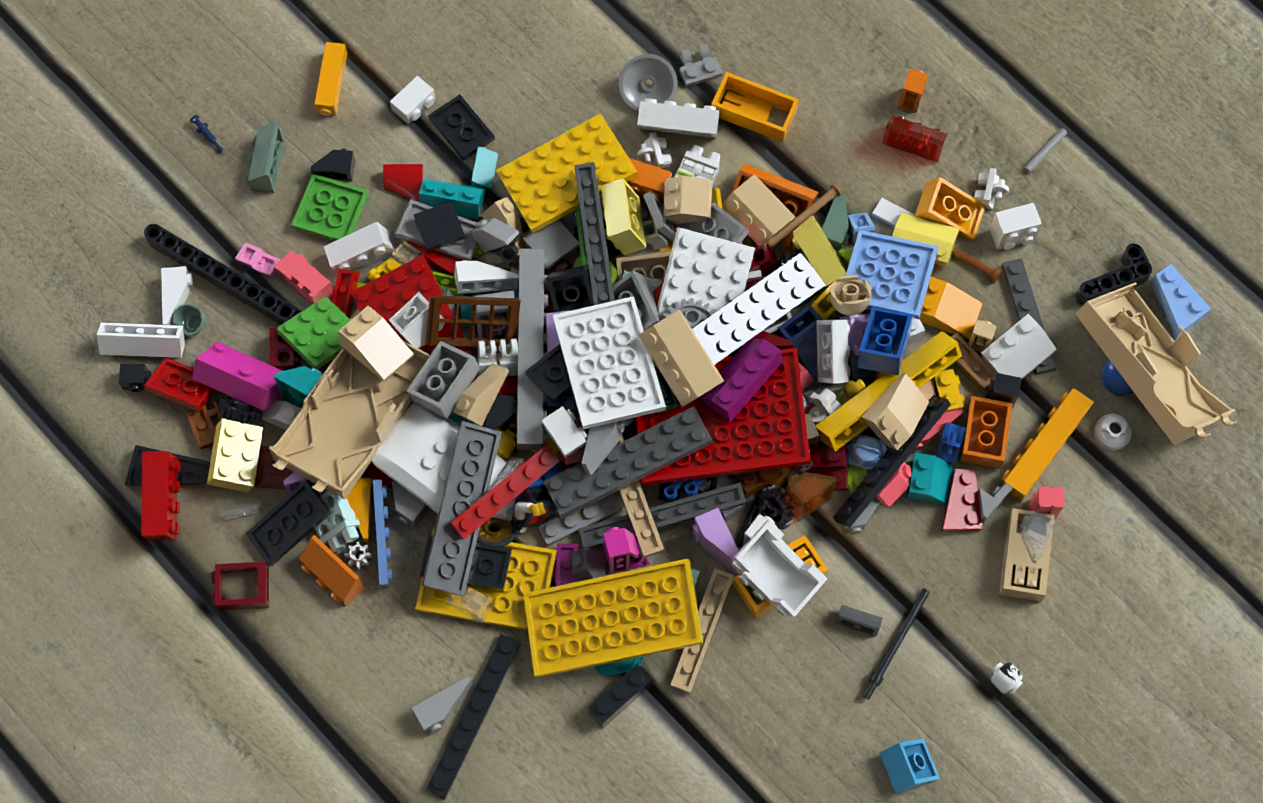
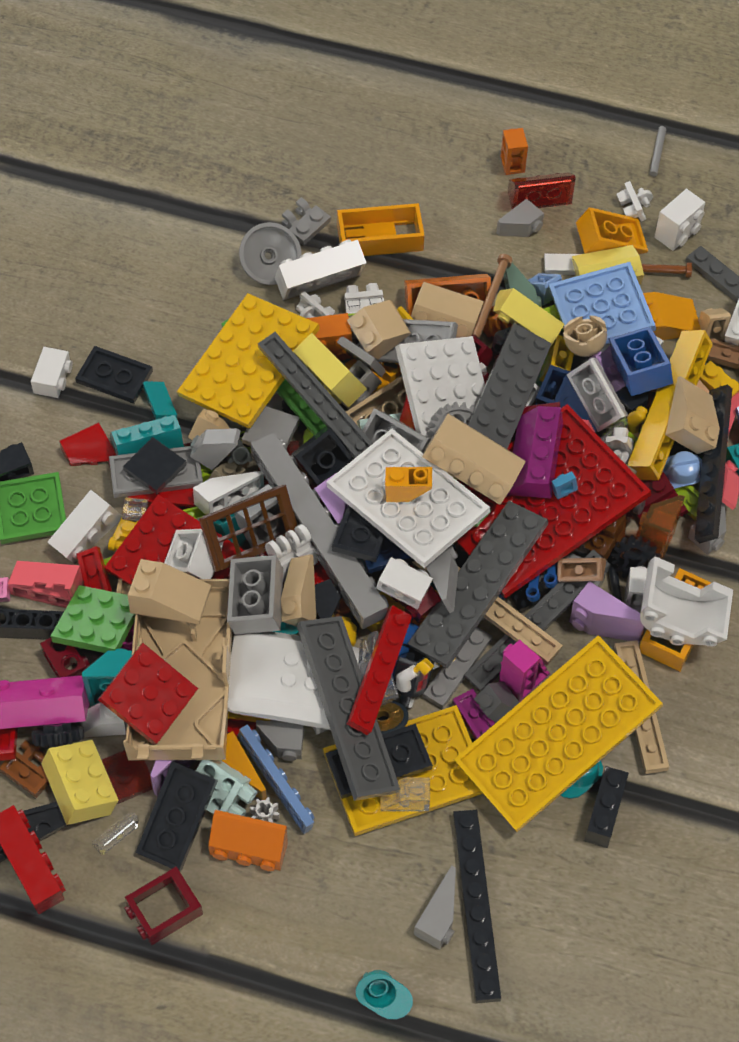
camera: 30 degrees left, 10 degrees down
(312, 418) = (148, 694): none -> red plate
(358, 744) = (384, 995): none -> teal piece
(608, 351) = (407, 483): none -> light orange slope
(718, 494) = (580, 569): none -> medium nougat slope
(744, 417) = (564, 485): none -> dark azure plate
(880, 157) = (521, 221): none -> light grey slope

